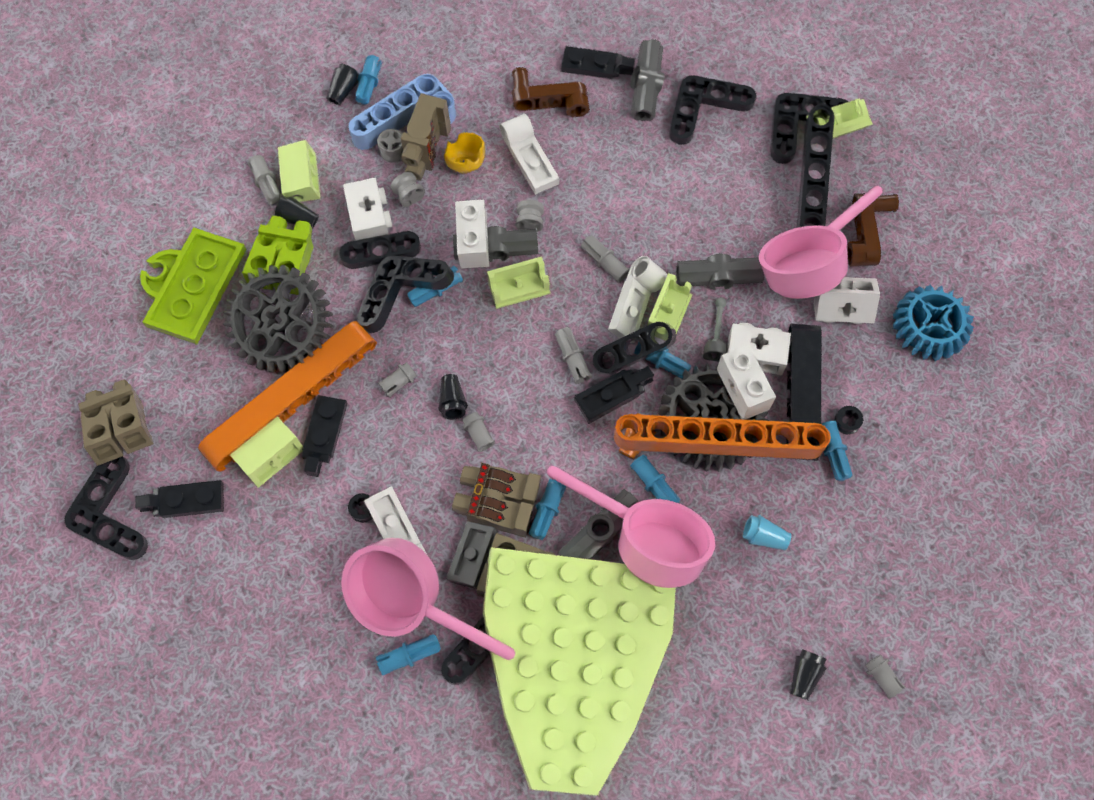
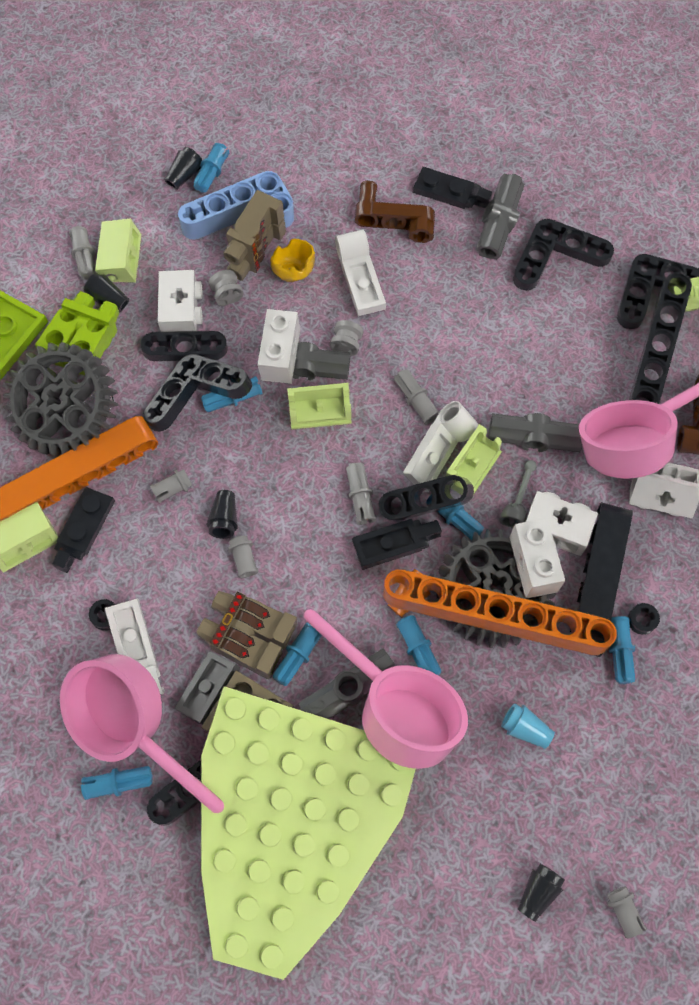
camera: 10 degrees right, 0 degrees up
(386, 142) = (213, 235): light grey wheel -> none

